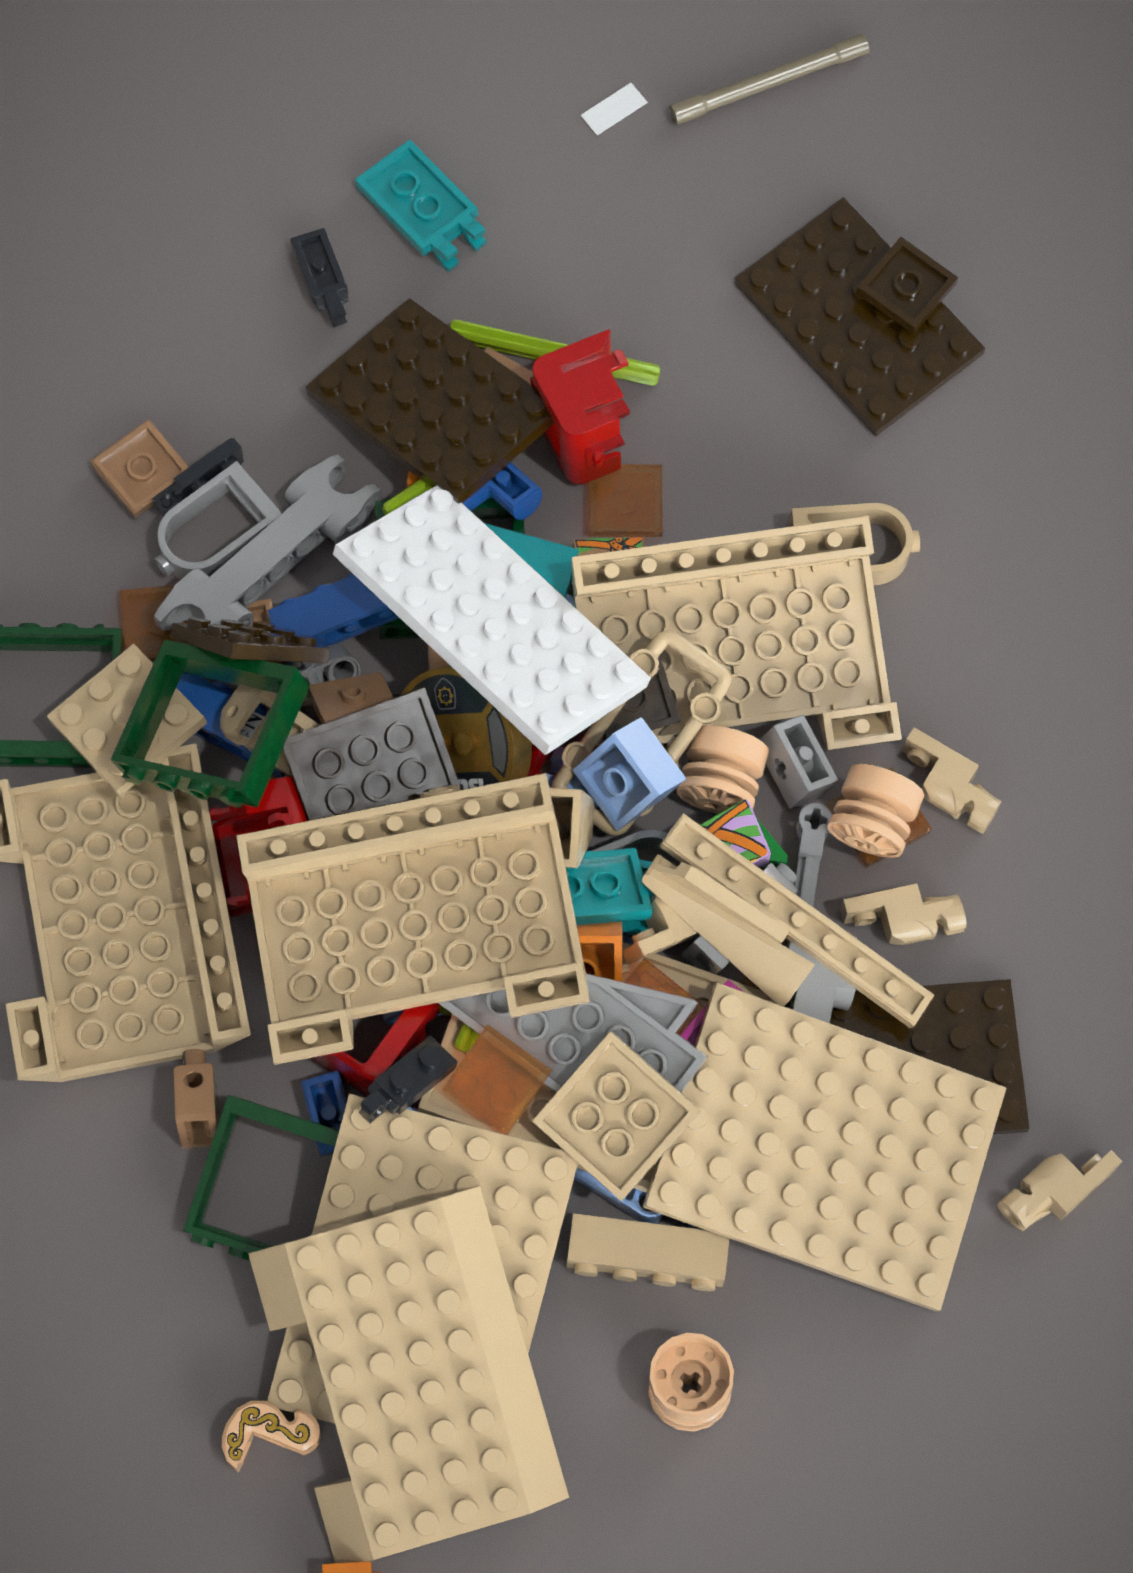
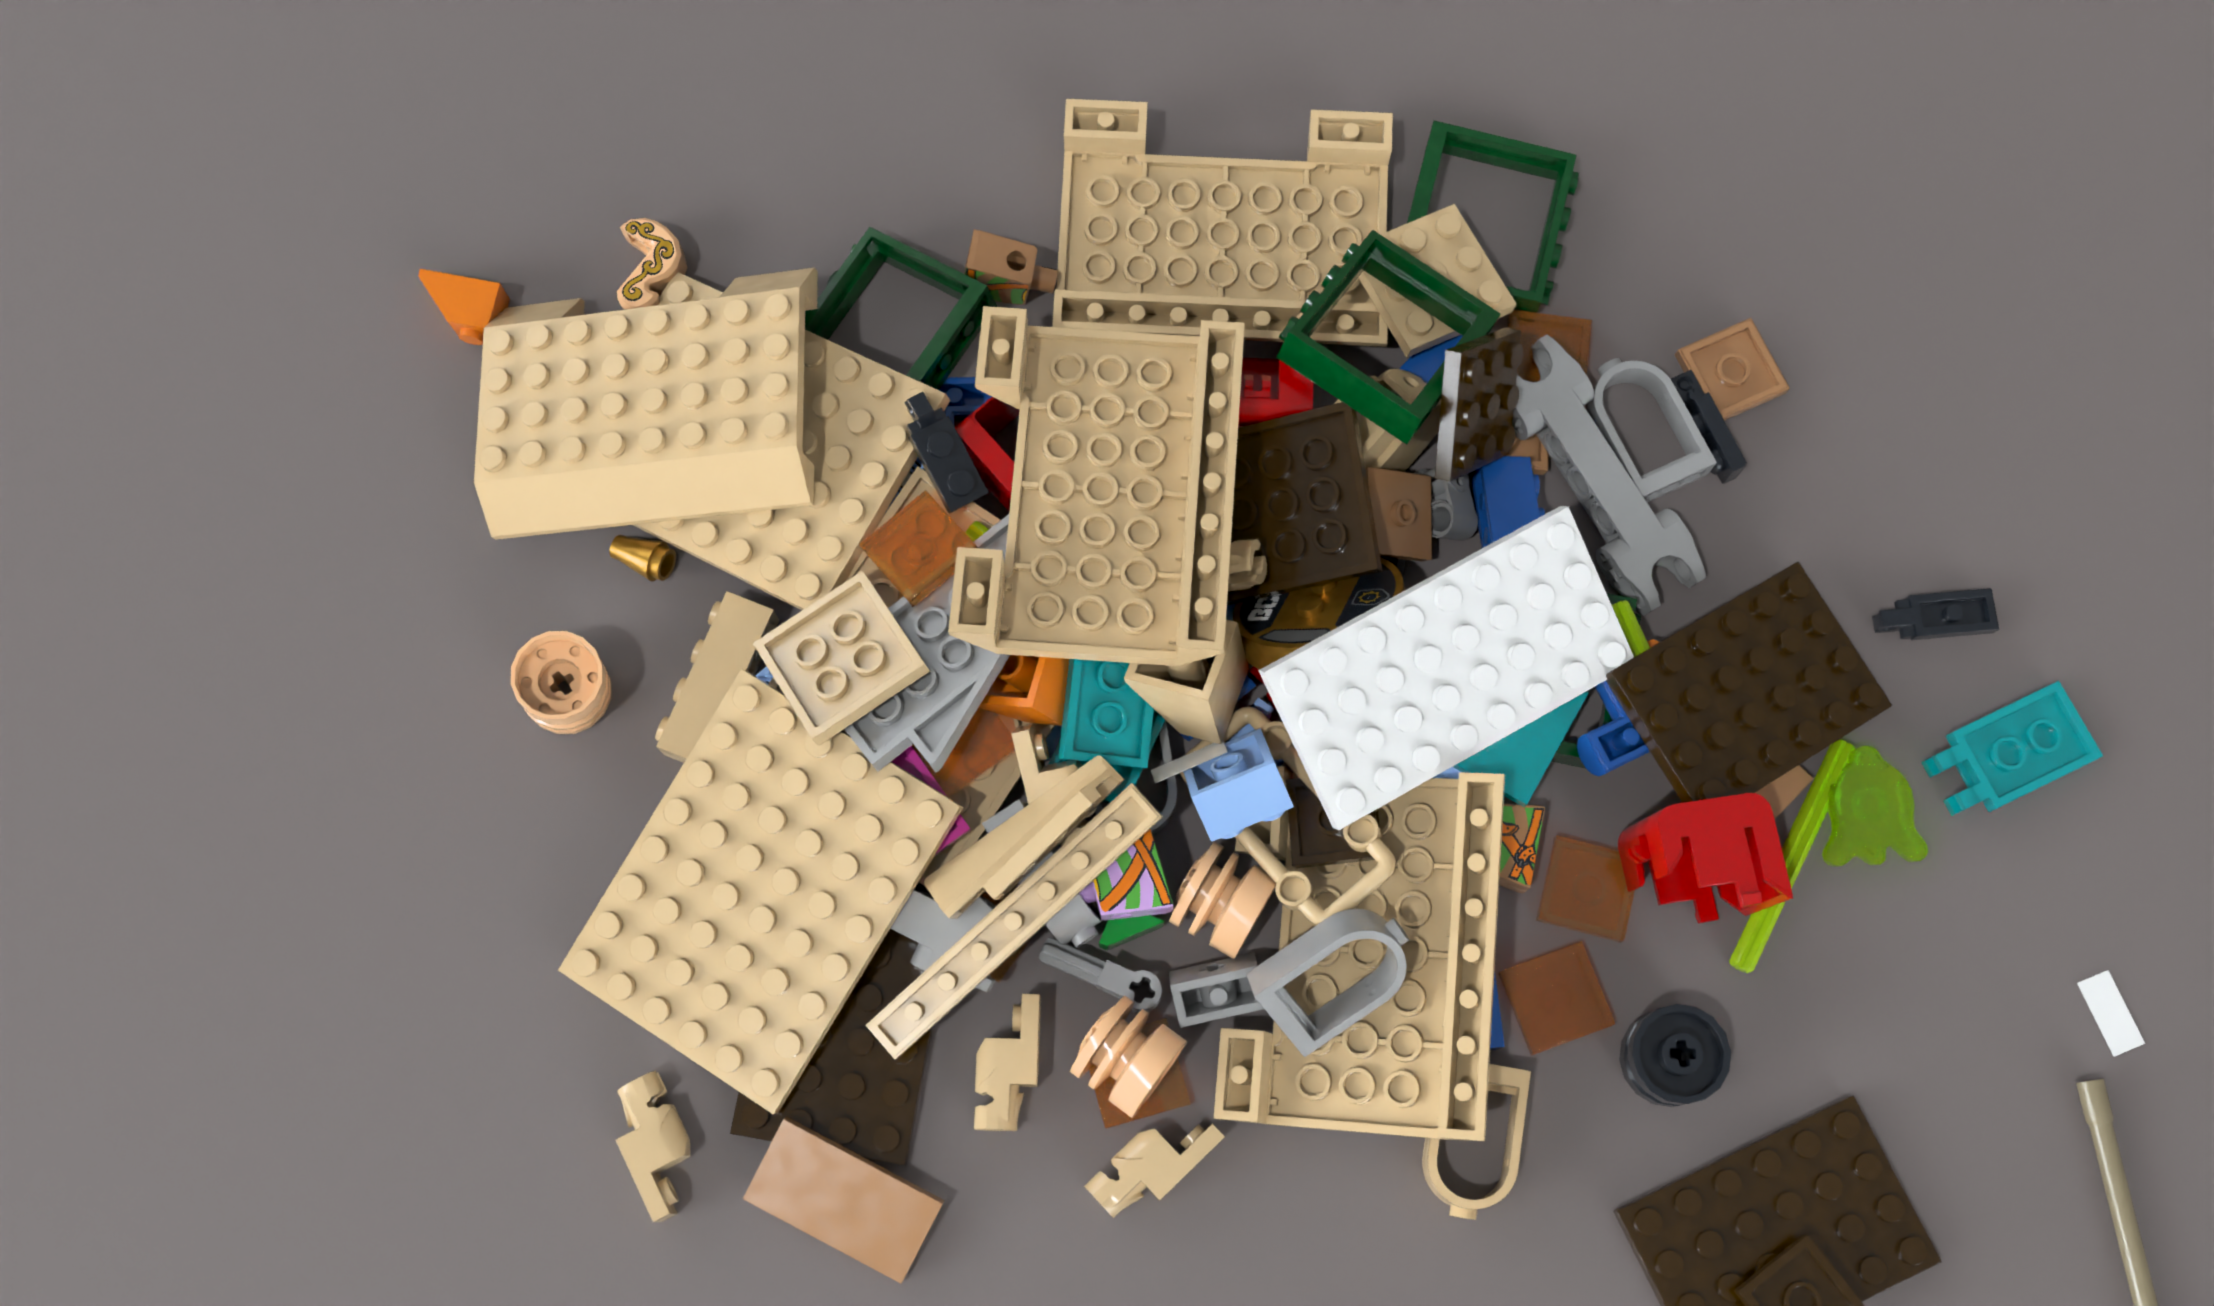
camera: 110 degrees right, 5 degrees up
(505, 299) = (1871, 811): none -> clear neon green tile
(549, 1352) = (647, 557): none -> pearl gold cone
(616, 821) = (1188, 761): none -> white sticker
(722, 504) = (1556, 998): none -> clear orange tile
(745, 408) = (1701, 1052): none -> black wheel
(754, 675) = (1350, 1006): none -> light grey window
(1053, 1019) = (843, 1199): none -> tile

